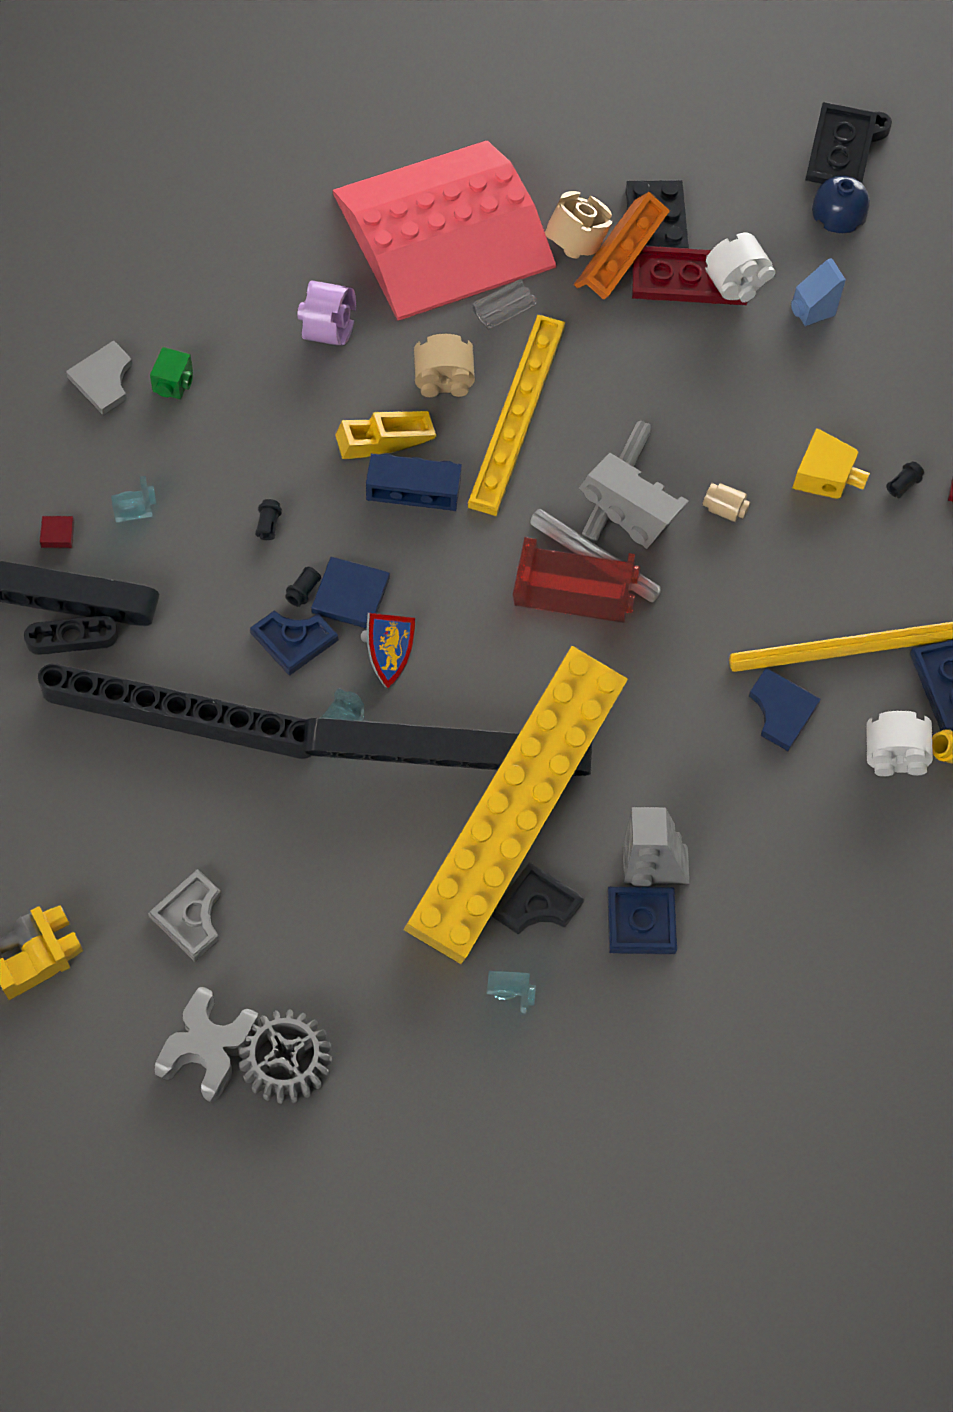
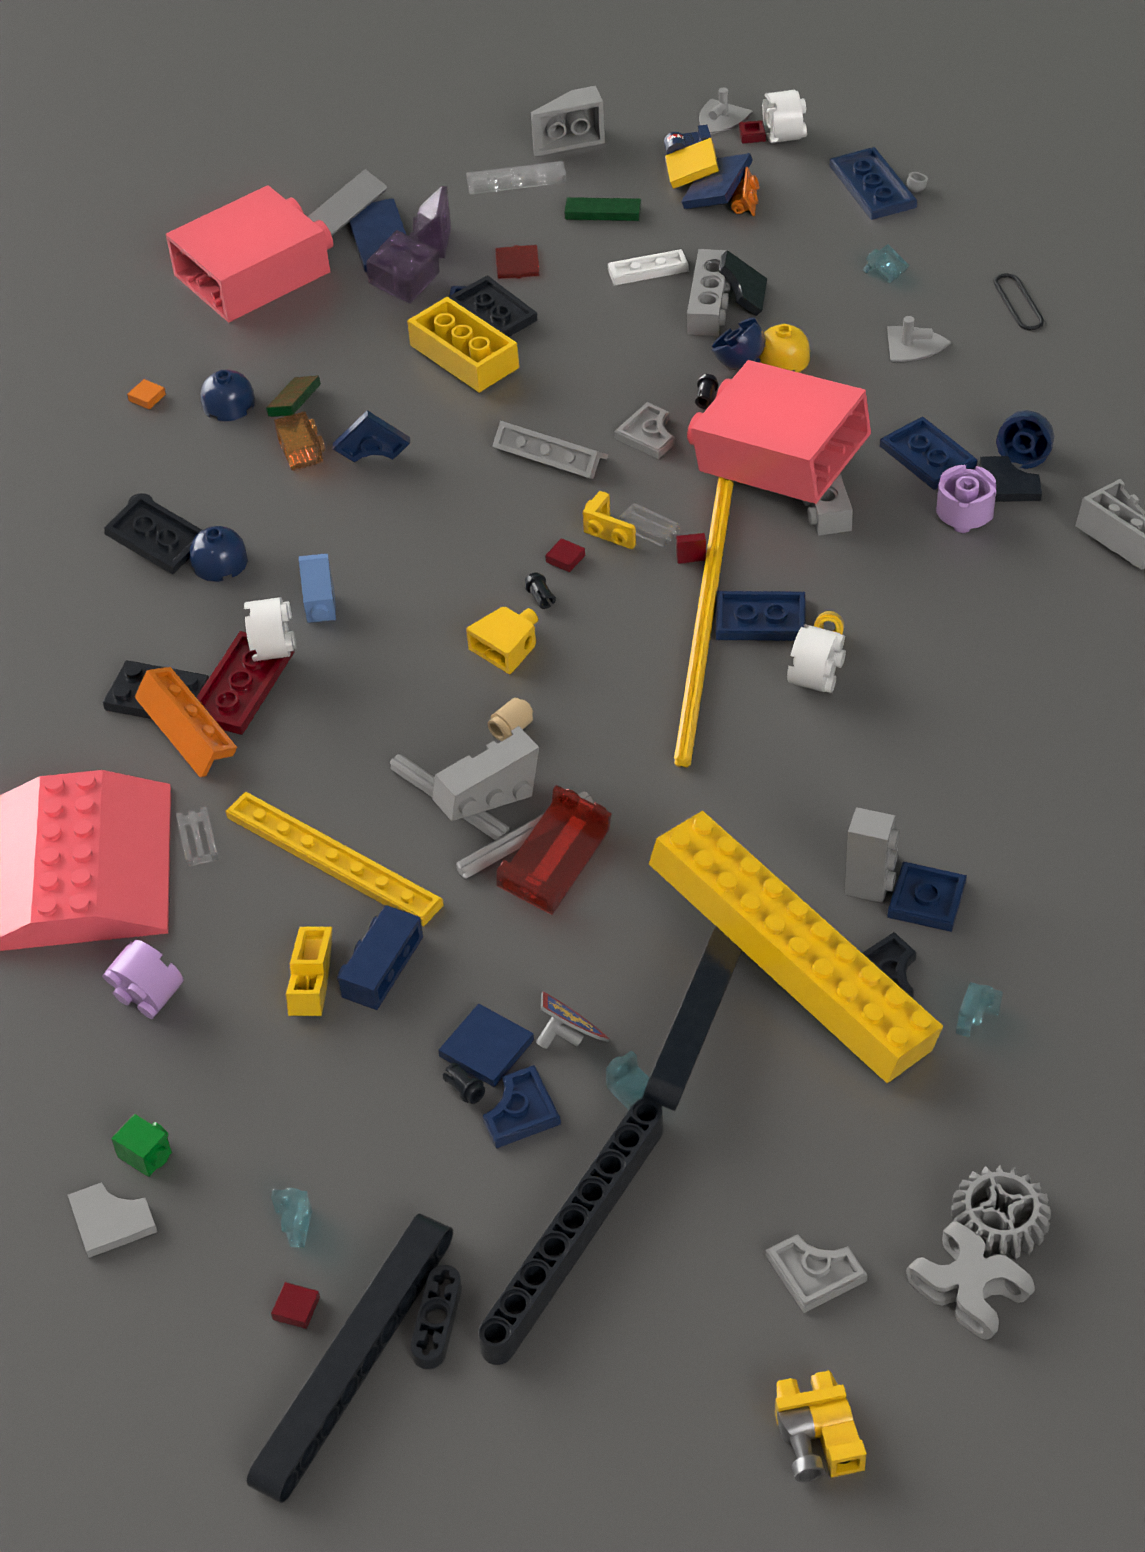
camera: 65 degrees left, 15 degrees down
(269, 514) = (368, 1096): black pin -> none
(444, 365) = (259, 893): tan brick -> none
(579, 224) = (145, 743): tan brick -> none
(784, 708) = (742, 736): dark blue tile -> none

